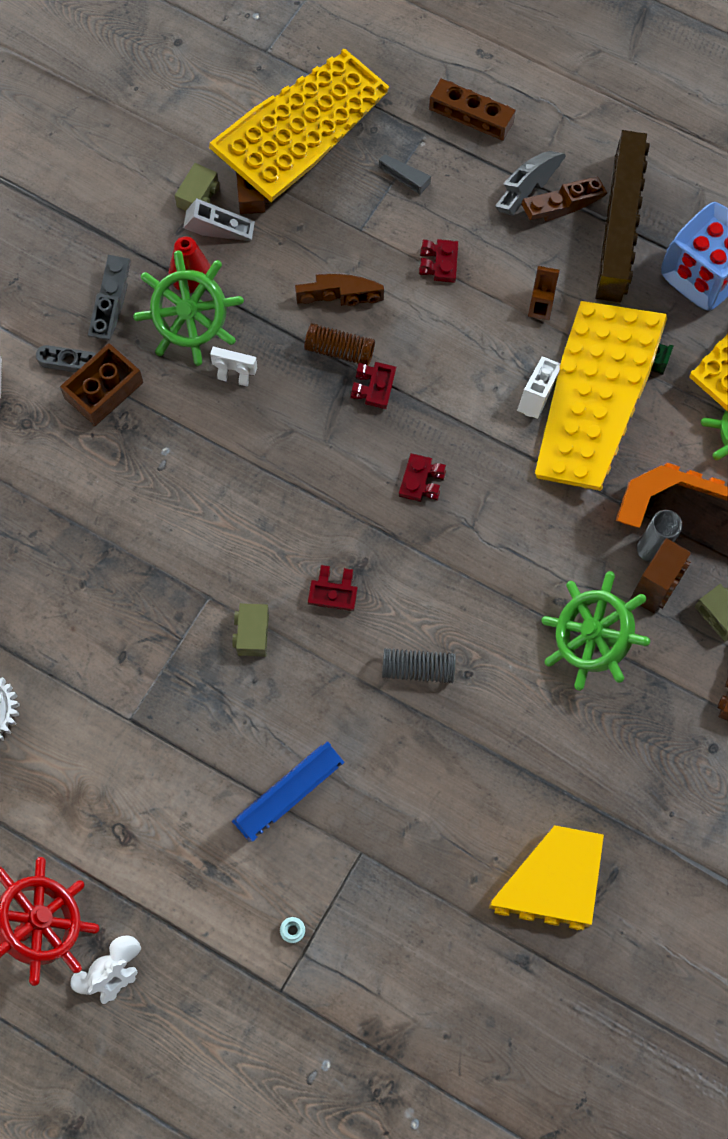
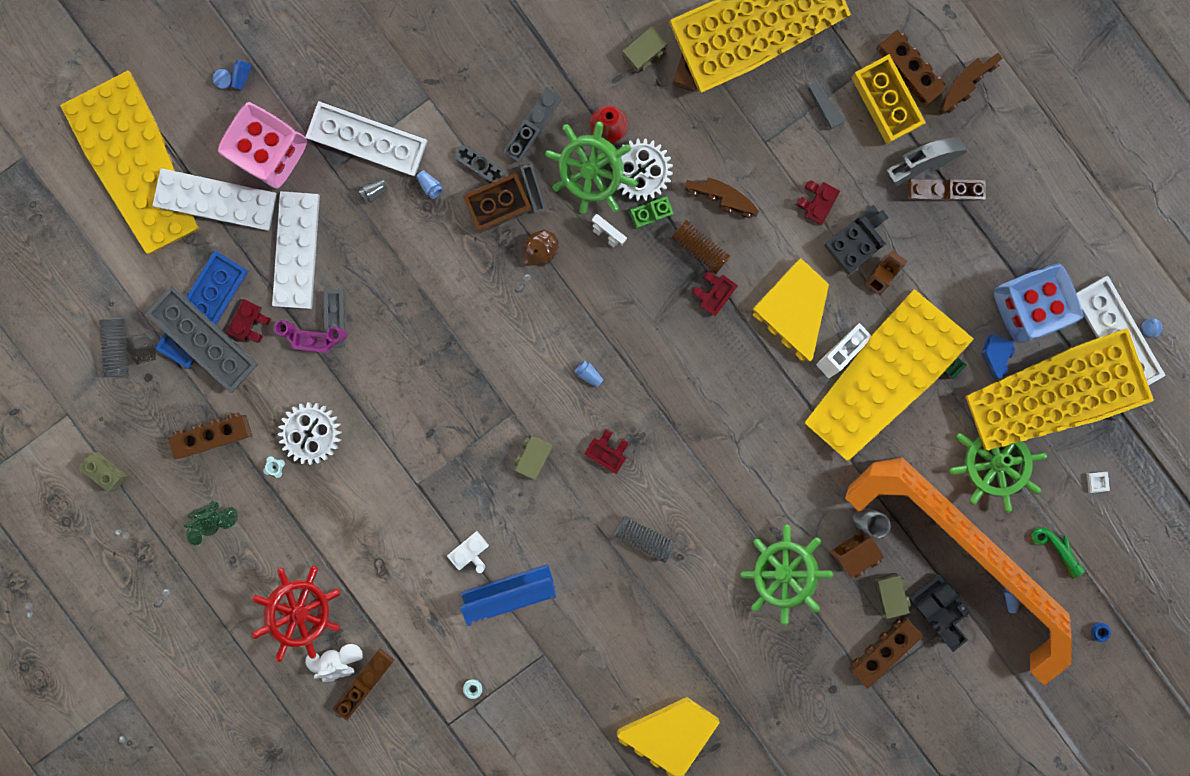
camera: 25 degrees right, 20 degrees up
(21, 398) = (430, 185): none -> medium blue cone
(128, 350) = (533, 188): none -> dark grey piece
(155, 981) = (363, 684): none -> reddish brown slope
(167, 411) = (540, 248): none -> reddish brown animal
(217, 222) = (649, 89): light grey slope -> none
(221, 768) = (468, 552): none -> white plate
(260, 306) = (652, 183): none -> white gear
(273, 335) = (651, 212): none -> bright green slope
(276, 518) = (588, 373): none -> medium blue cone
(416, 476) = (711, 384): dark red plate -> none
(463, 141) = (888, 99): none -> yellow brick
(468, 366) = (795, 309): none -> yellow slope
(500, 276) = (857, 240): none -> black plate
(533, 100) = (963, 84): none -> reddish brown slope
(622, 216) = (985, 228): dark brown brick -> none
(697, 327) = (996, 354): none -> blue slope

